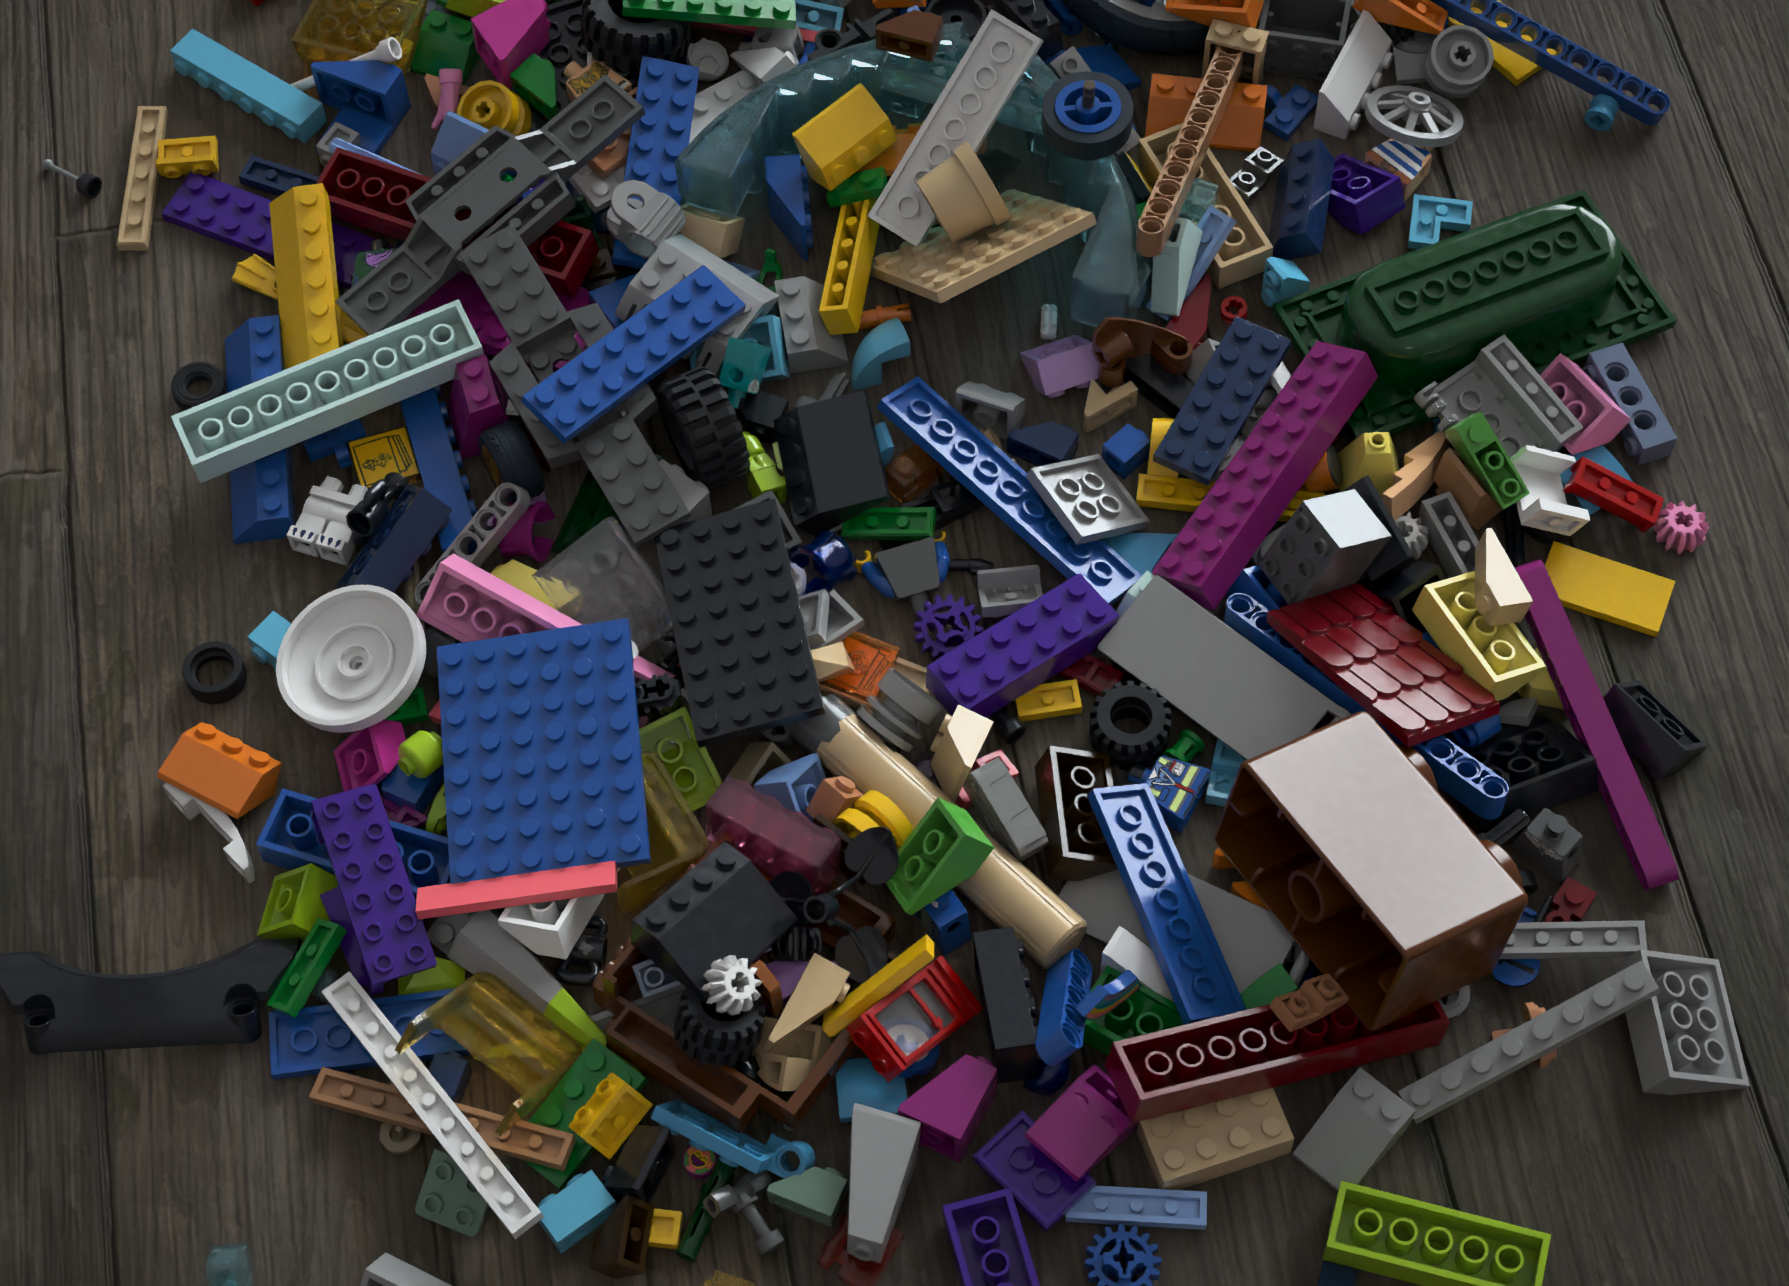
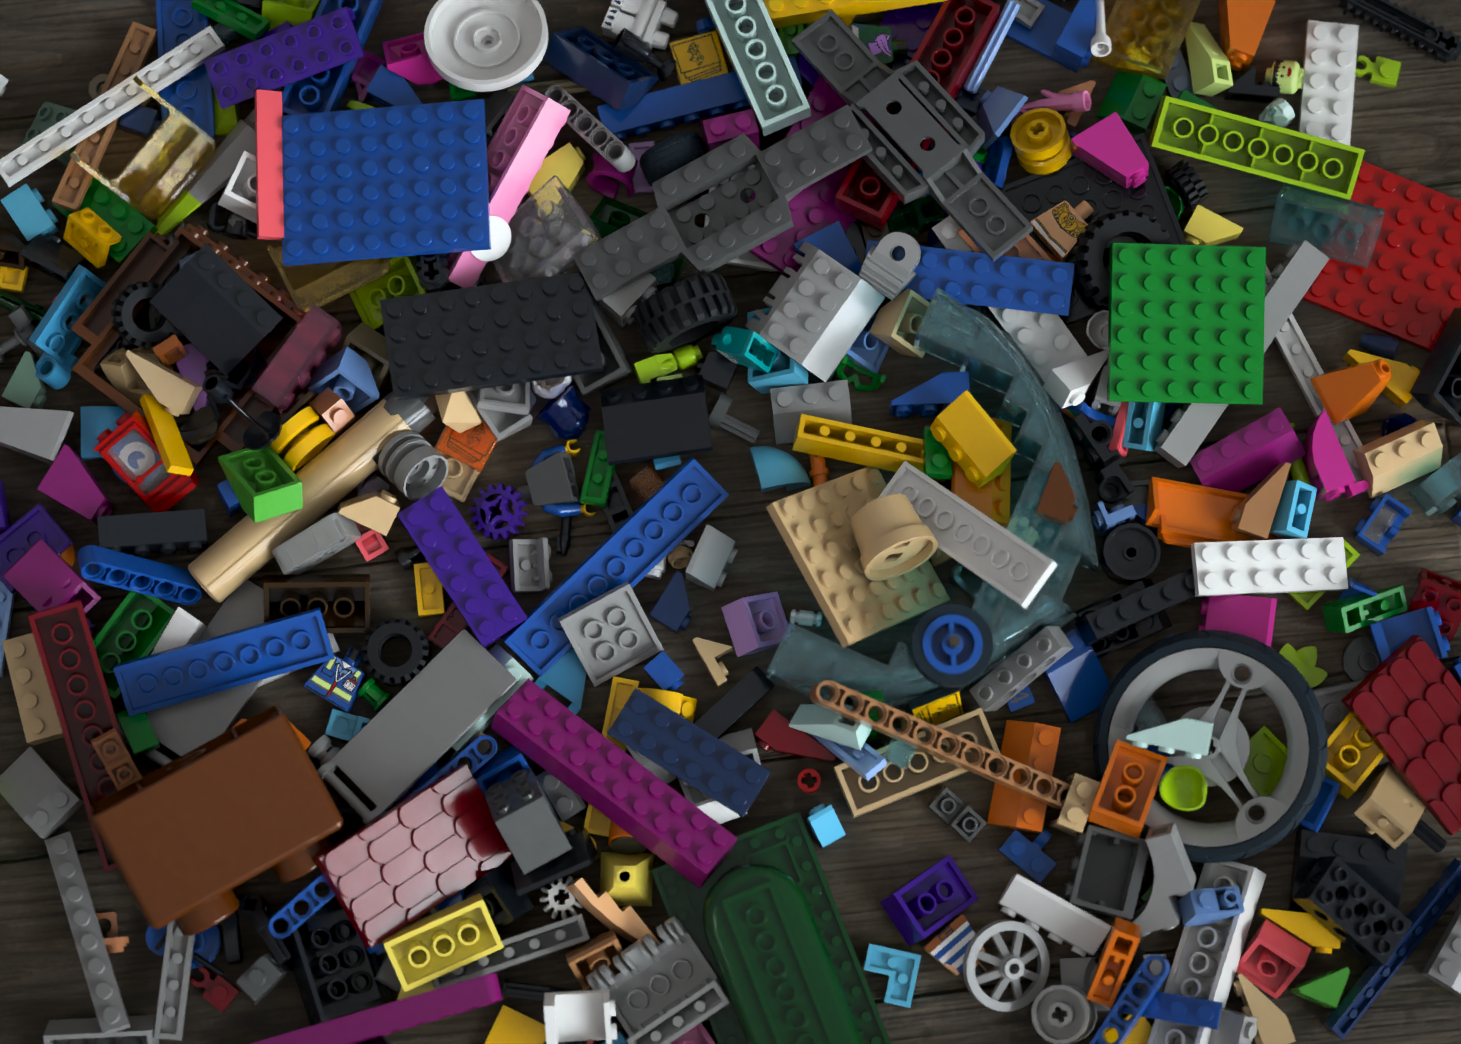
camera: 90 degrees right, 20 degrees up
(421, 754) = (399, 91): lime head -> none
(537, 85) = (1069, 179): green slope -> none
(633, 354) = (736, 251): blue plate -> none
(720, 978) = (155, 319): white gear -> none
(1109, 996) = (136, 604): blue tile -> none
(1128, 338) = (735, 662): reddish brown panel -> none
(1302, 201) = (909, 849): dark blue slope -> none
(1487, 459) = (602, 968): bright green slope -> none
(1498, 587) = (475, 960): tan slope -> none

